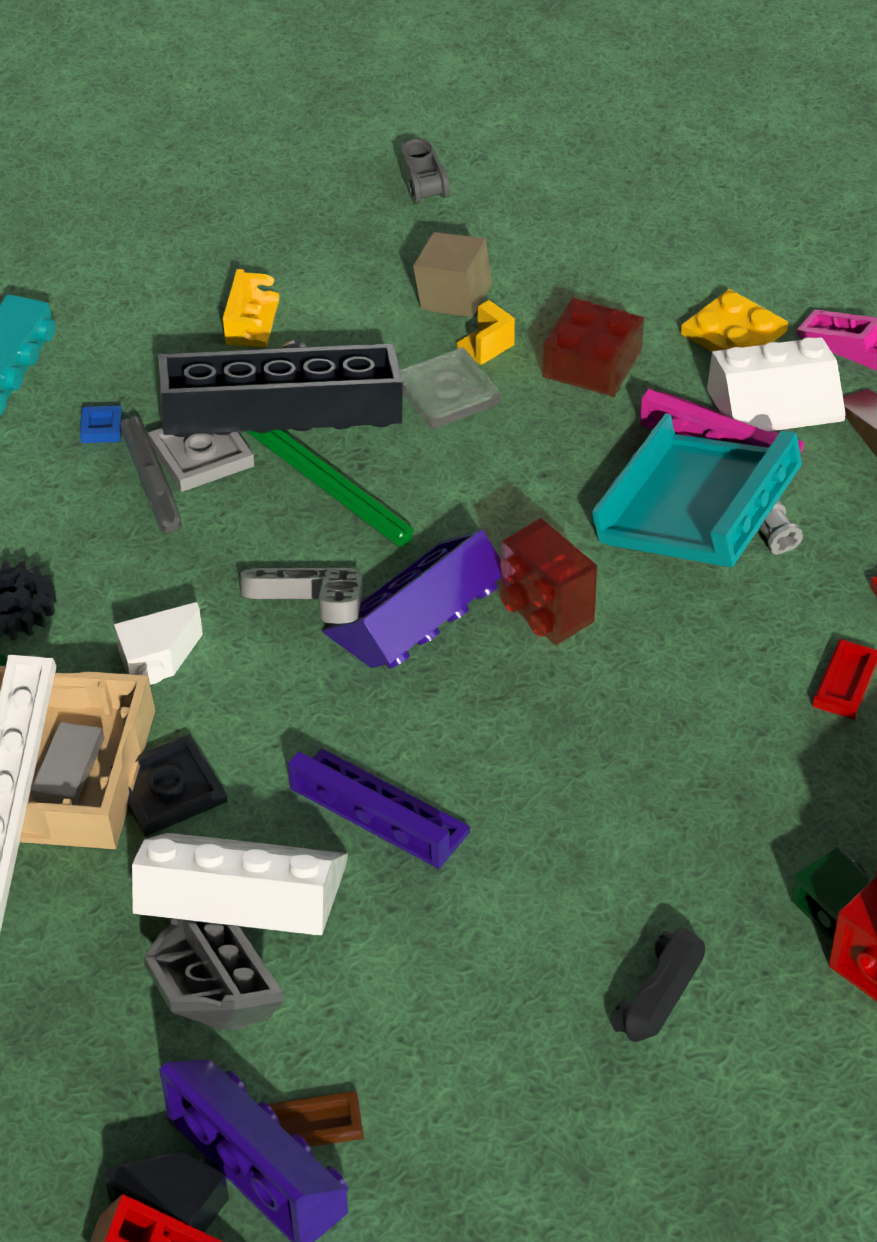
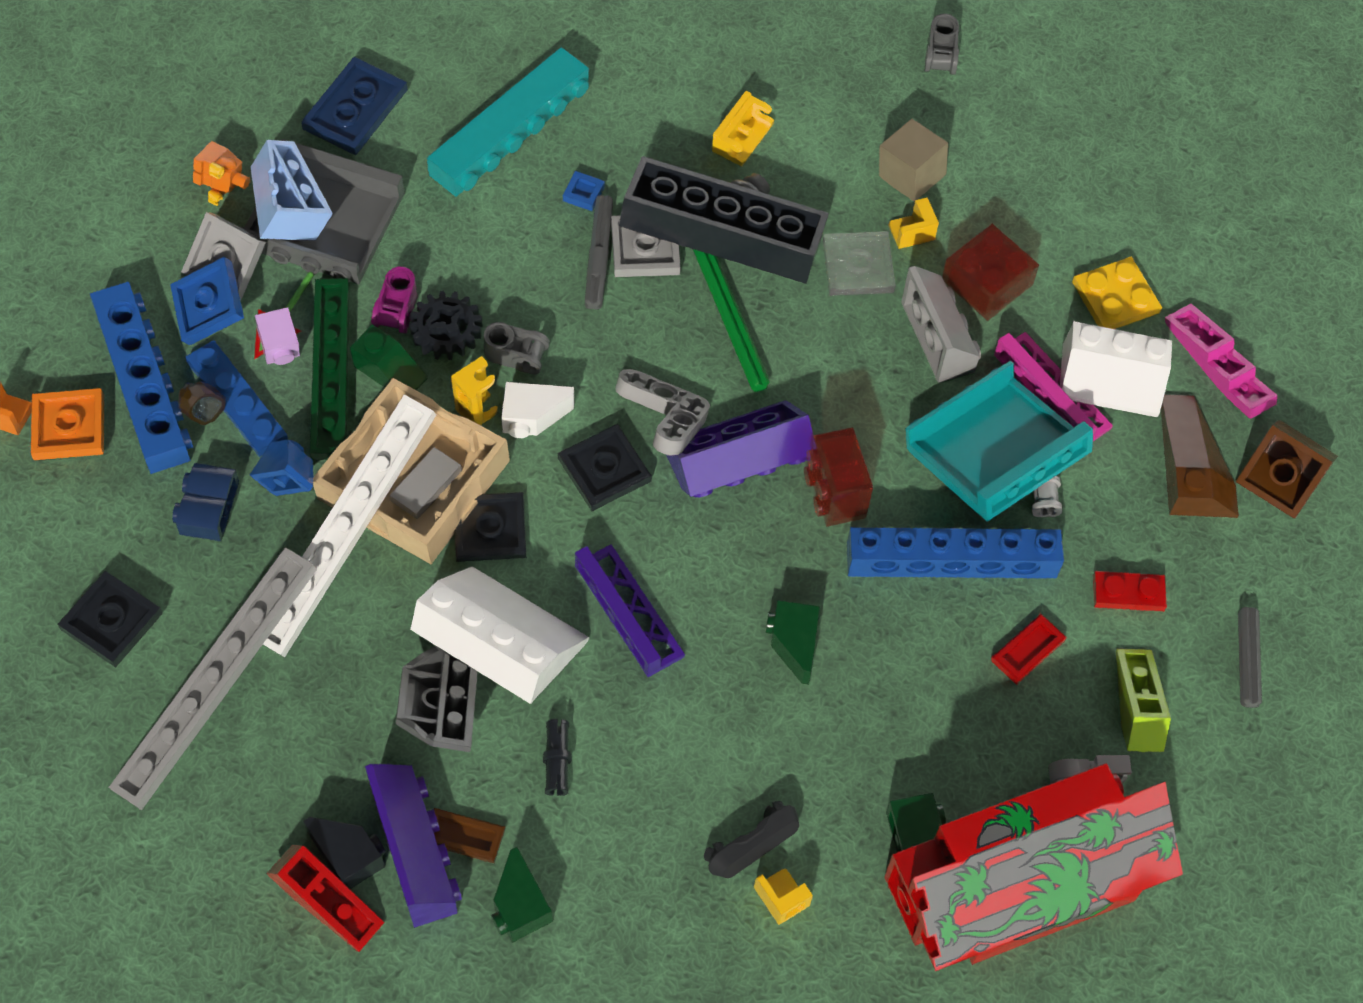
camera: 20 degrees right, 15 degrees up
(76, 639) = (471, 390): none -> yellow hinge
(99, 594) = (517, 347): none -> dark grey piece
(272, 675) = (604, 467): none -> black plate
(379, 990) = (557, 757): none -> black pin
(422, 1159) = (519, 900): none -> dark green slope
(568, 412) = (939, 325): none -> light grey slope
(587, 759) = (794, 636): none -> dark green slope
(712, 613) = (954, 552): none -> blue brick
(726, 1031) = (782, 895): none -> yellow panel

